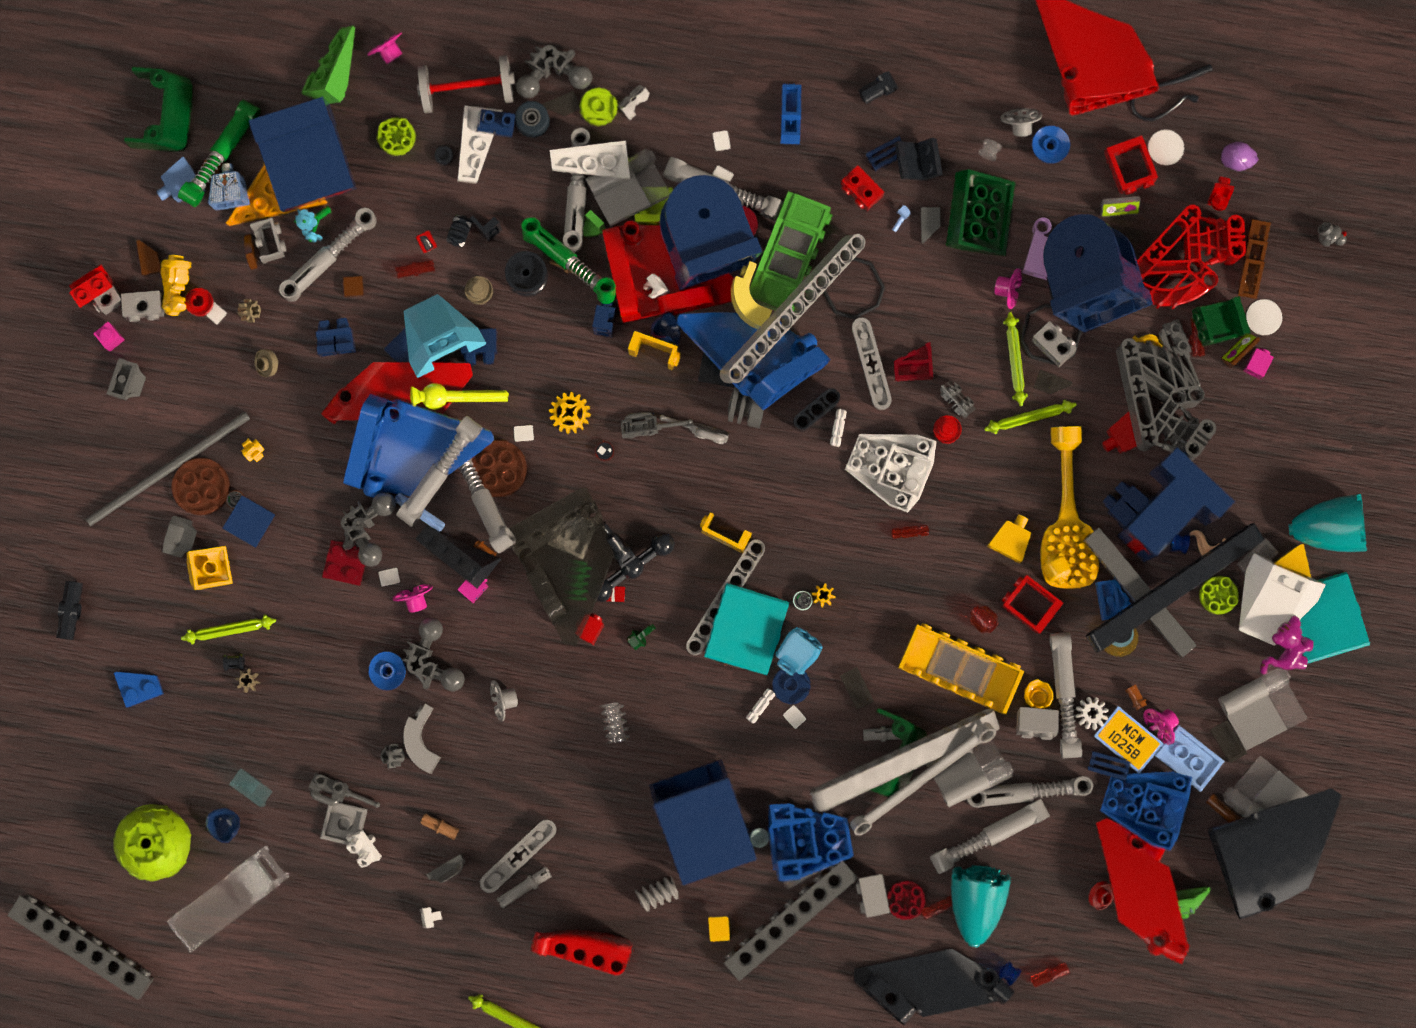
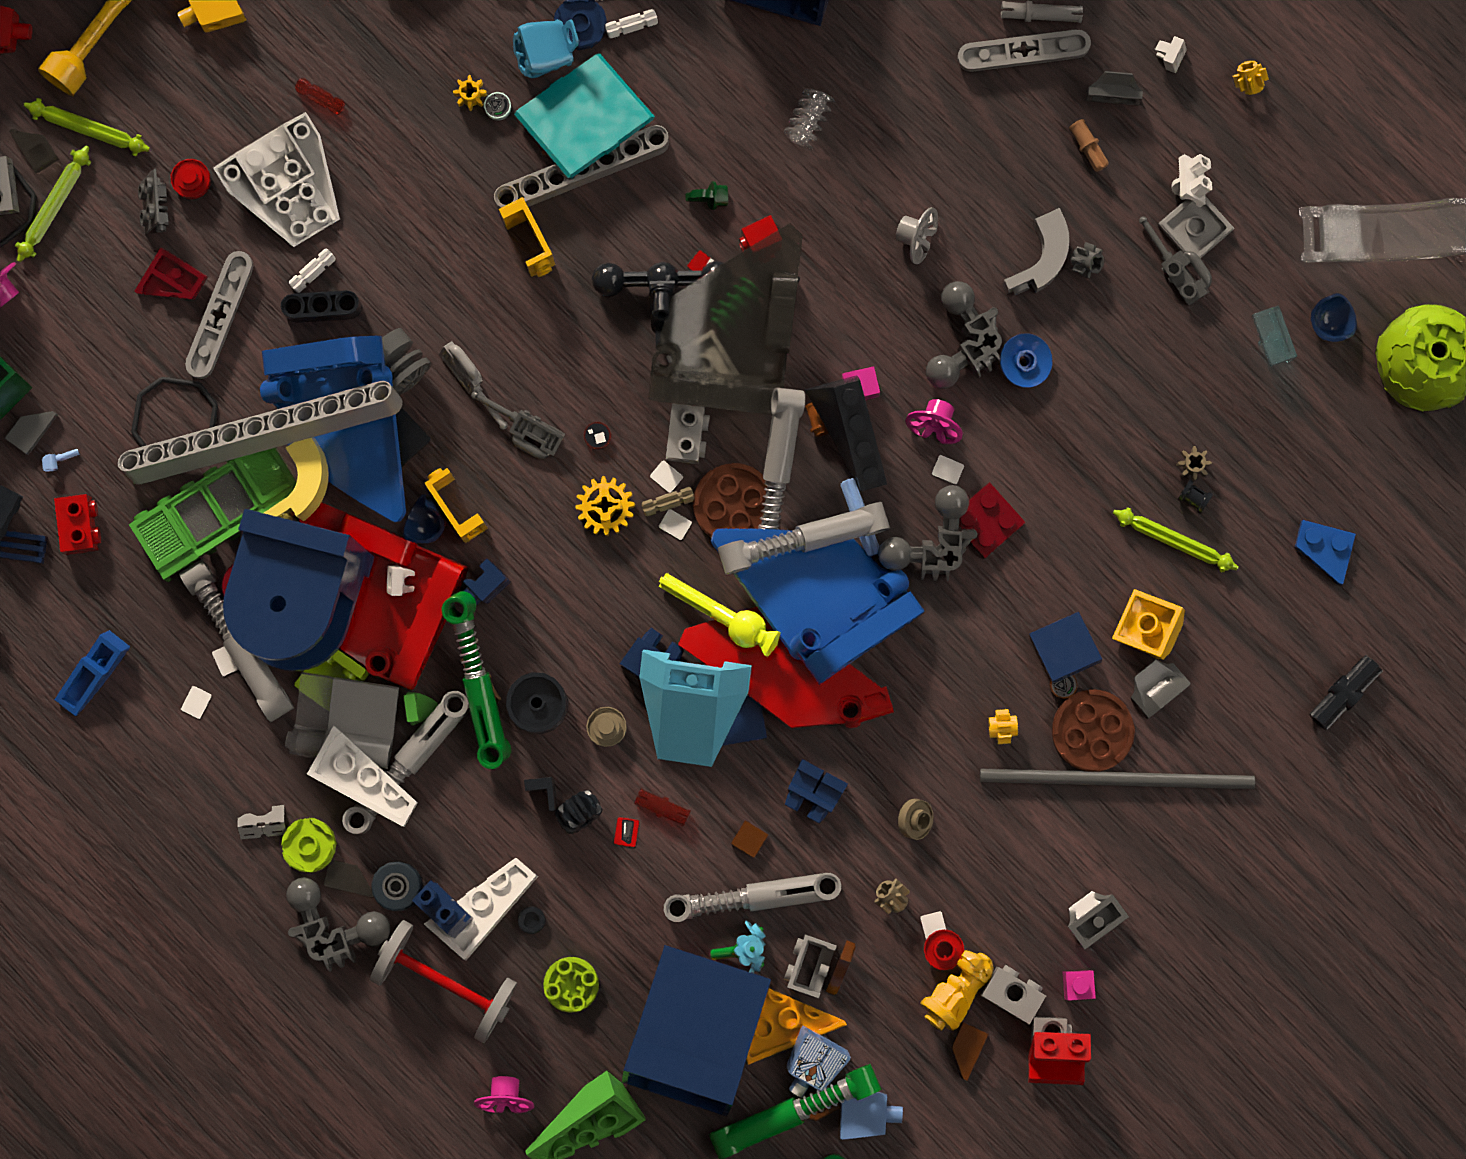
camera: 145 degrees left, 0 degrees up
(372, 935) = (1250, 77): none -> yellow gear
(536, 442) = (668, 501): none -> dark tan axle
(548, 457) = (666, 476): none -> white sticker
(552, 485) = (686, 434): none -> light grey brick

